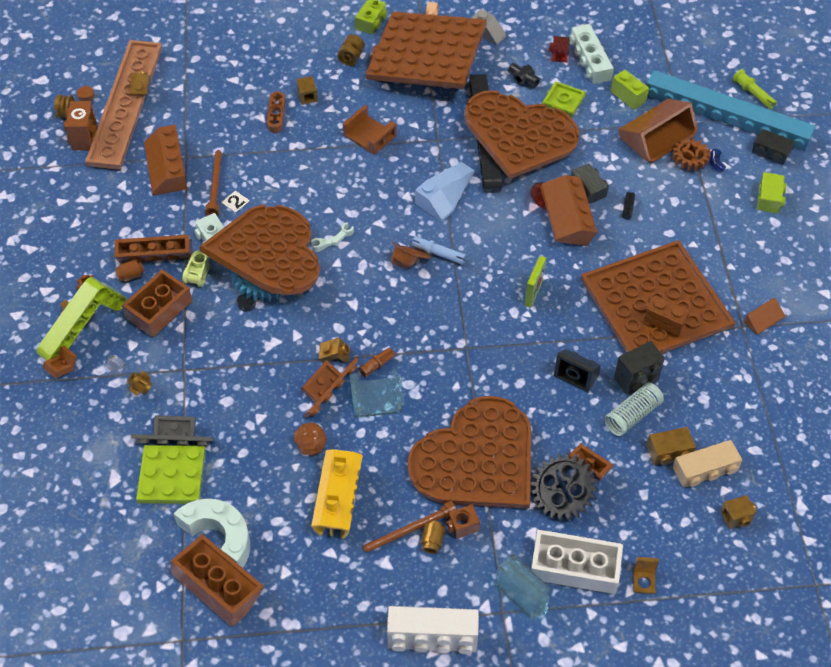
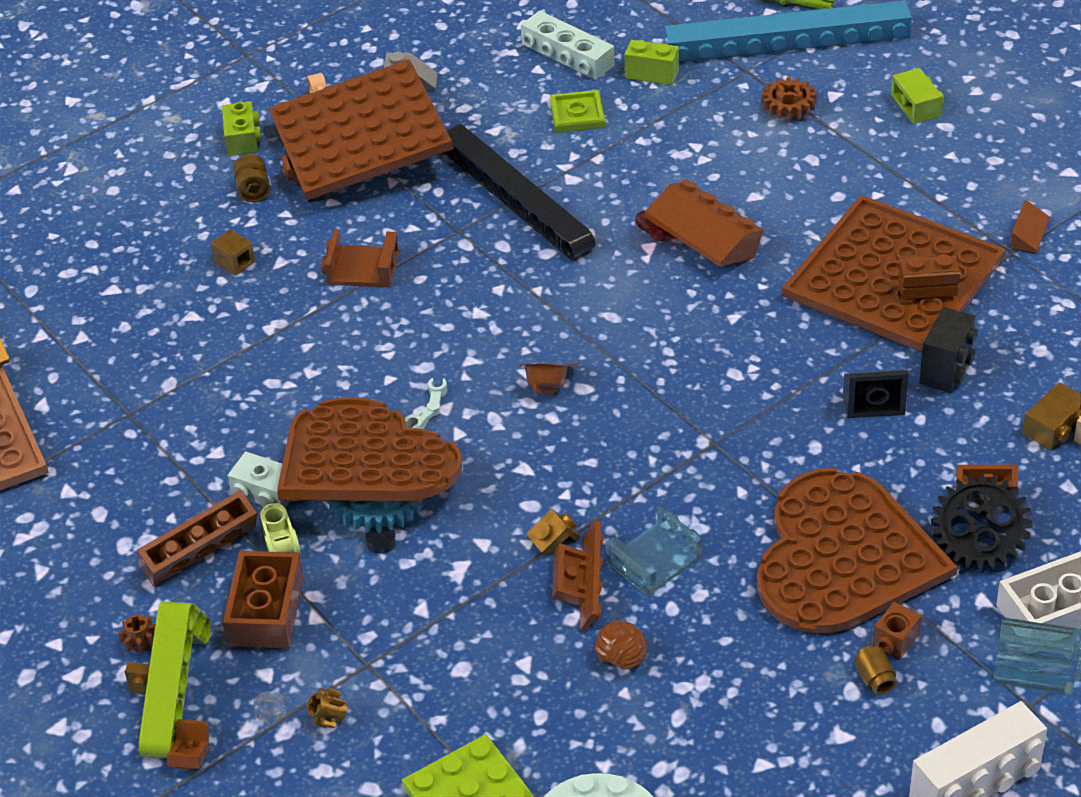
camera: 30 degrees left, 10 degrees down
(129, 270) = (182, 583): dark orange brick -> none
(165, 161) = (109, 428): dark orange slope -> none
(174, 429) = (426, 736): dark grey bracket -> none
(212, 206) = (229, 451): dark orange piece -> none
(235, 201) = (251, 431): white sticker -> none
(276, 117) = (211, 307): dark orange beam -> none
(337, 492) = (720, 681): yellow piece -> none
(376, 362) = (620, 515): dark orange axle -> none
(432, 247) = (581, 350): light blue pin -> none
(441, 192) = (524, 283): light blue wedge -> none
(443, 513) = (862, 634): dark orange piece -> none
(518, 134) = (569, 169): dark orange plate -> none
(524, 75) = (504, 105): black axle -> none
(535, 281) = (739, 320): lime tile -> none
(559, 49) = (524, 57): clear red brick -> none
(593, 184) = (706, 180): pearl dark grey brick -> none
(619, 419) = (966, 394): light aqua piece -> none
(628, 205) = (765, 189): black piece -> none
(659, 129) = (728, 87): dark orange windscreen -> none
(715, 160) = (822, 94): clear blue arm -> none
(773, 146) = (874, 46): pearl dark grey brick -> none

